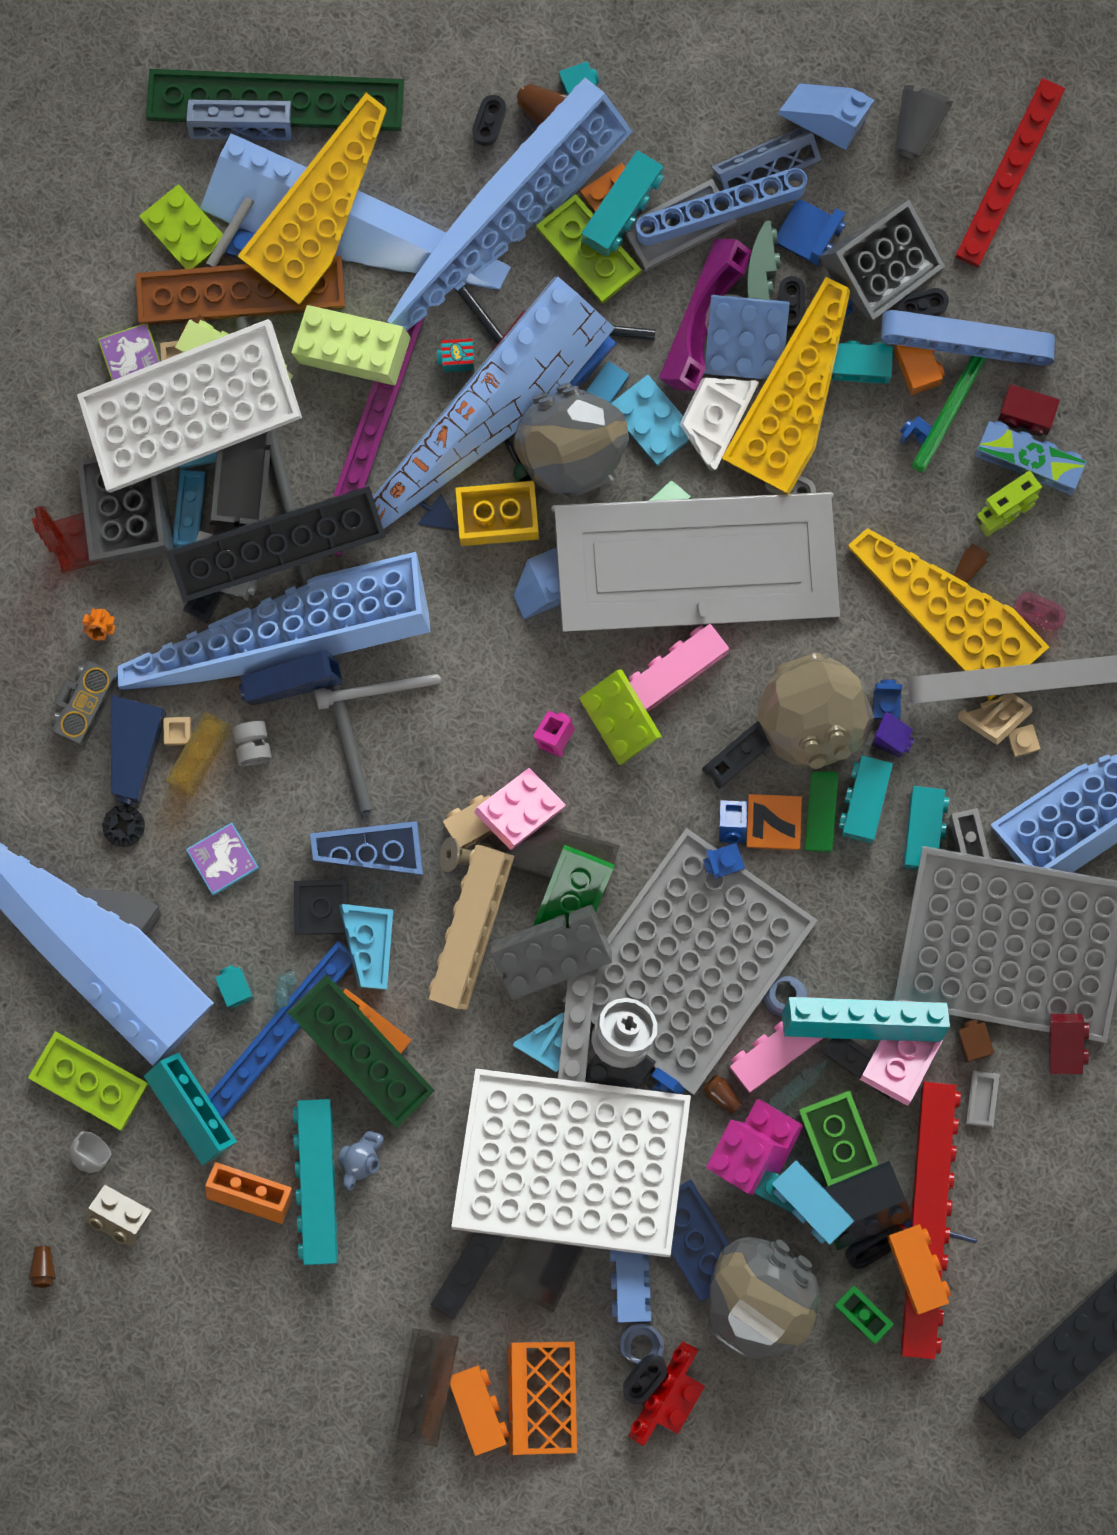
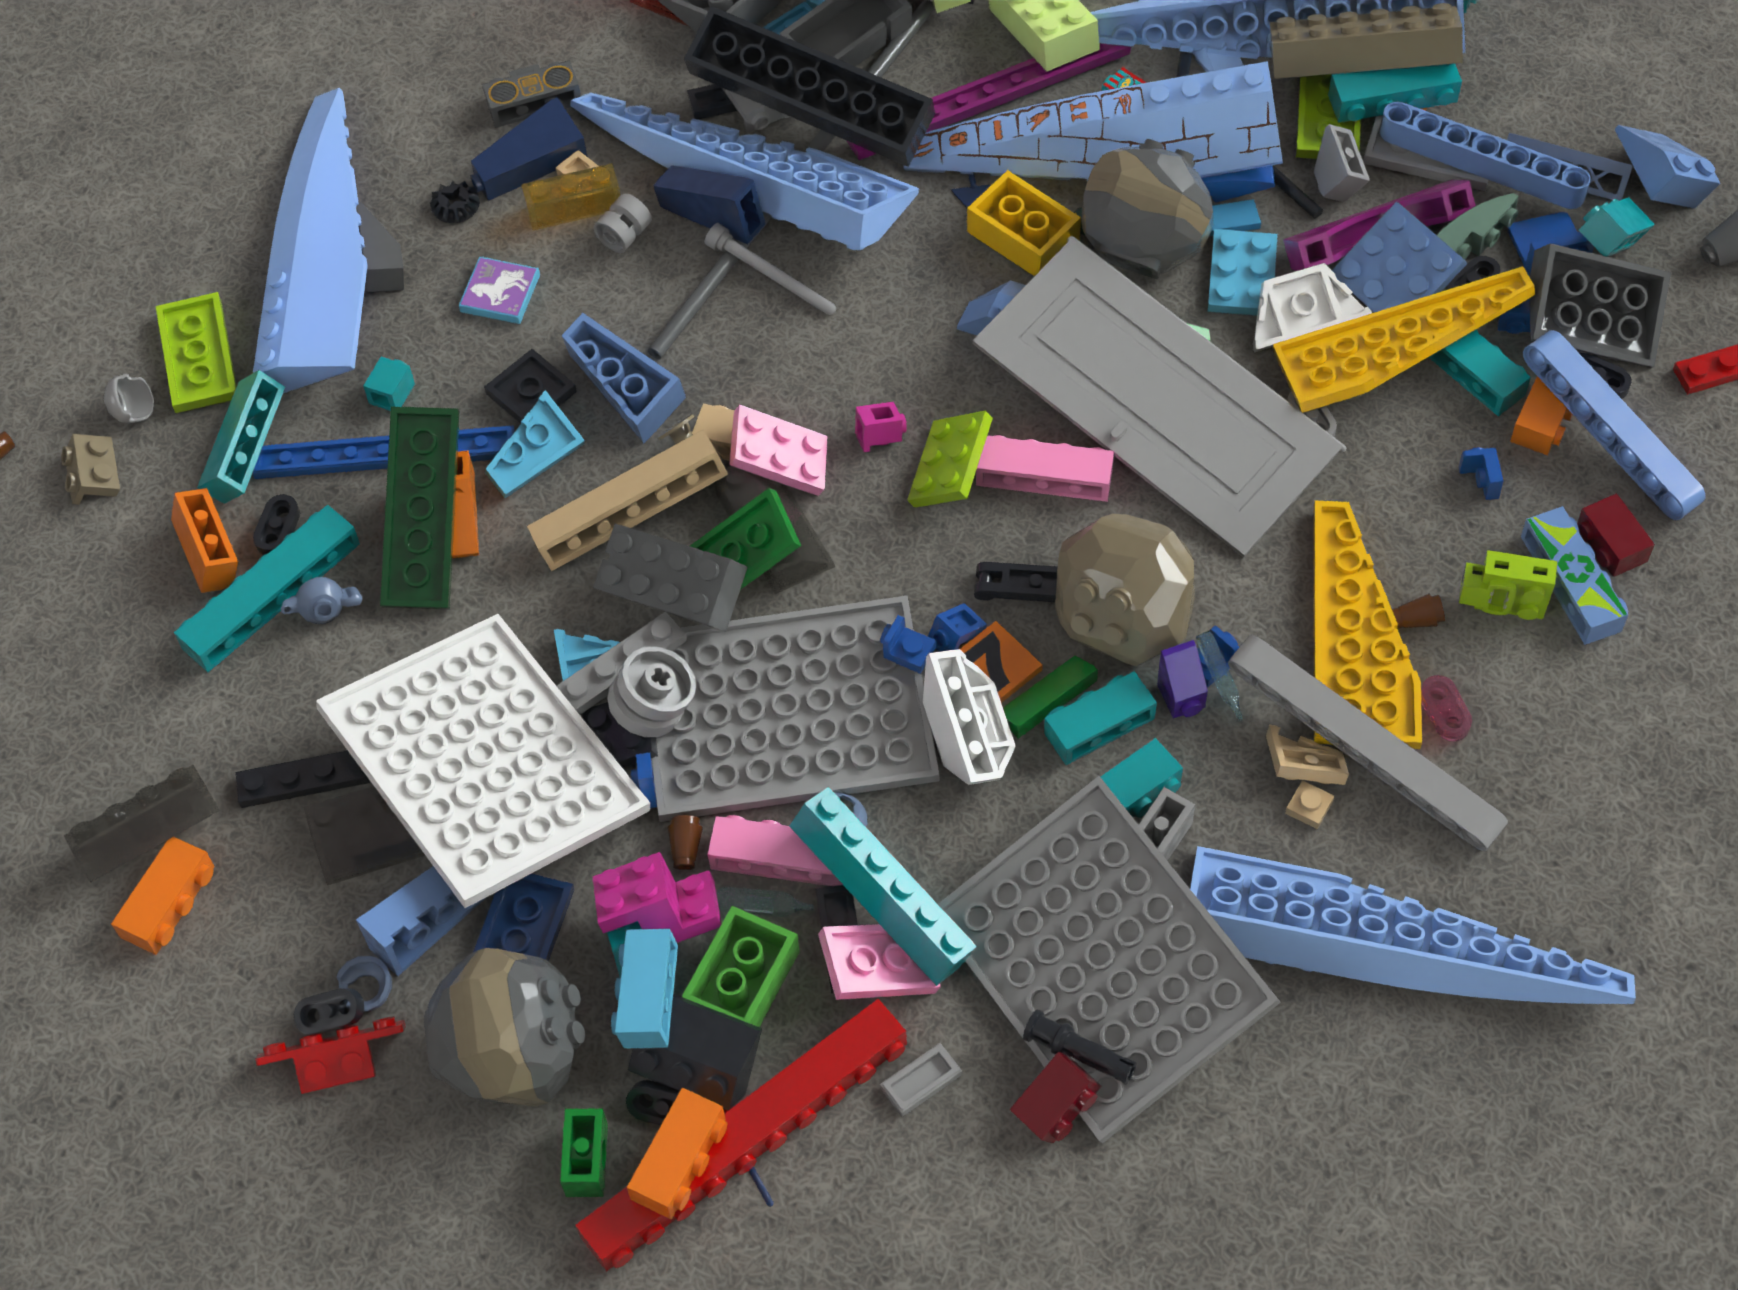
camera: 45 degrees right, 20 degrees down
(98, 624) = (610, 48): orange gear -> none
(273, 1140) = (274, 527): none -> black plate
(518, 1398) = (209, 917): orange fence -> none
(580, 190) = (1366, 41): none -> dark tan brick
(641, 292) = (1339, 165): none -> light grey slope
(803, 875) = (966, 718): none -> white wedge
(849, 193) = (1615, 226): none -> teal brick
(904, 709) = (1219, 671): none -> clear light blue piece
(948, 413) = (1528, 467): green axle -> none
(974, 1041) = (969, 1016): reddish brown brick -> none
(1043, 1009) = (1064, 1040): none -> black pin

